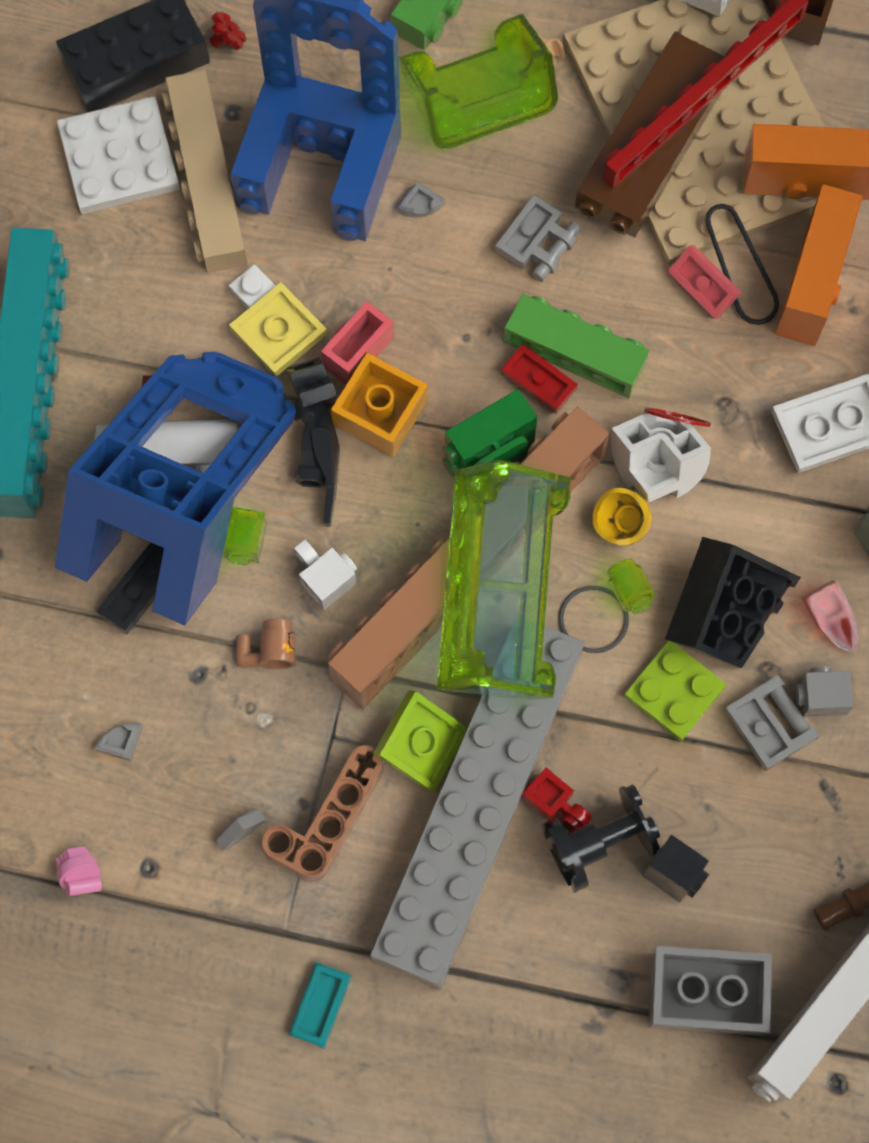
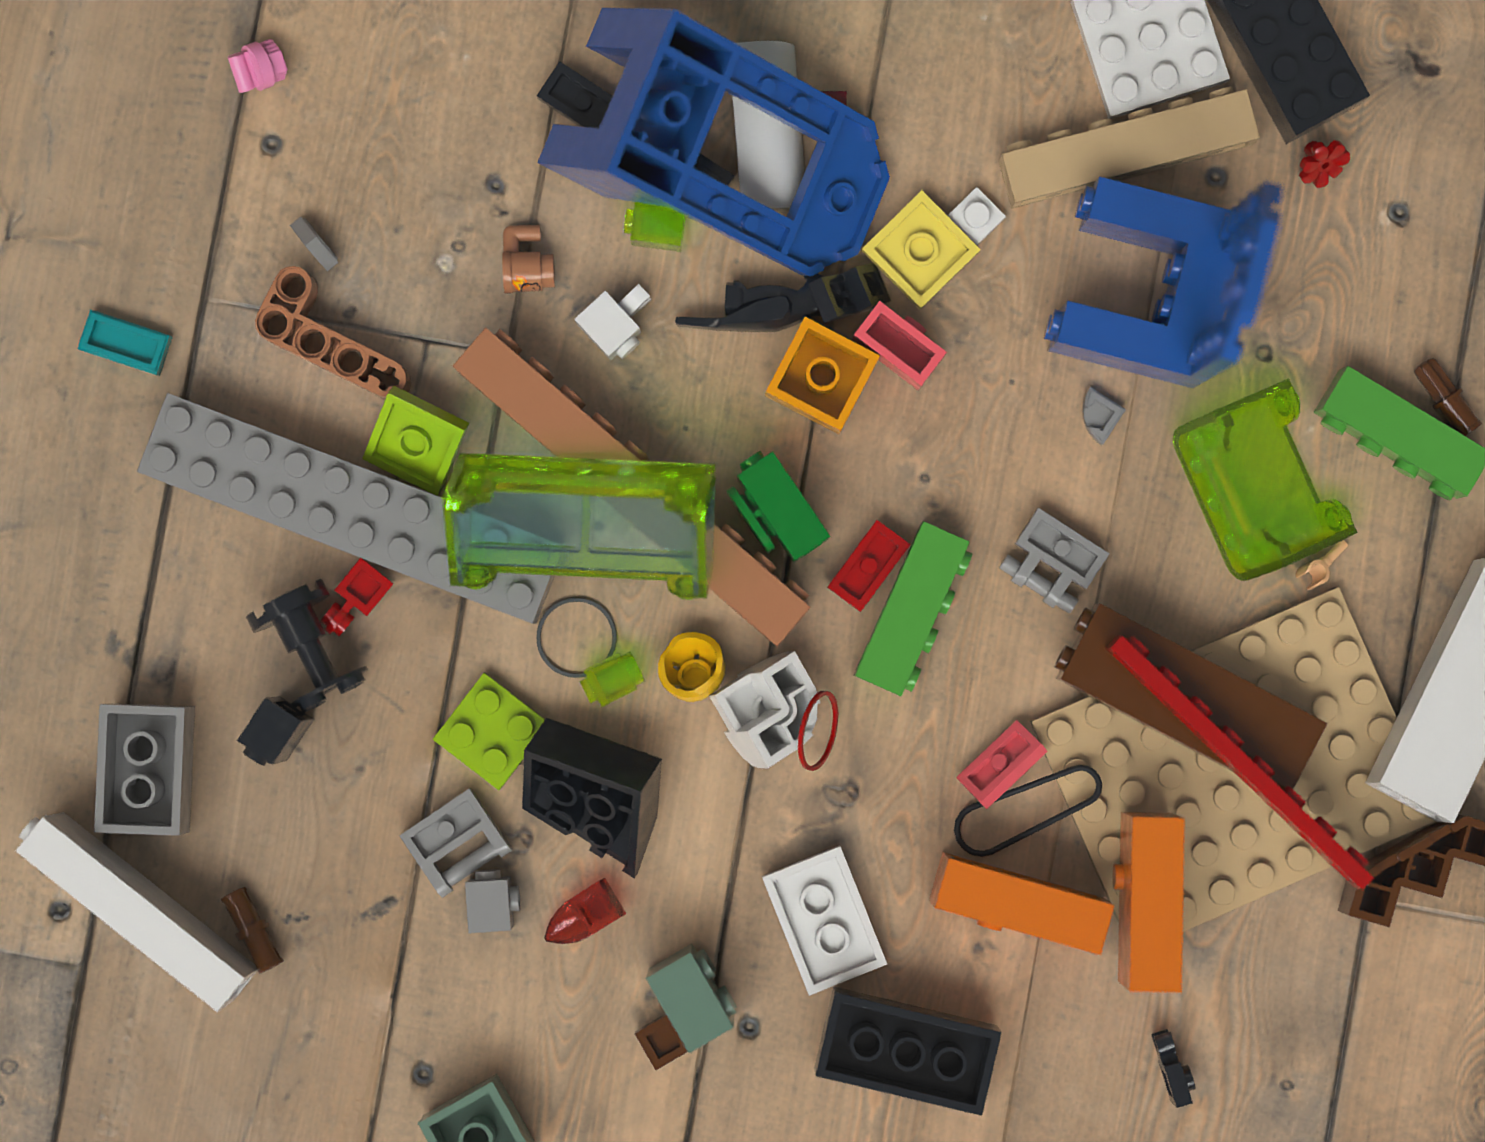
camera: 90 degrees right, 15 degrees up
(120, 741) = (412, 101): light grey tile -> none

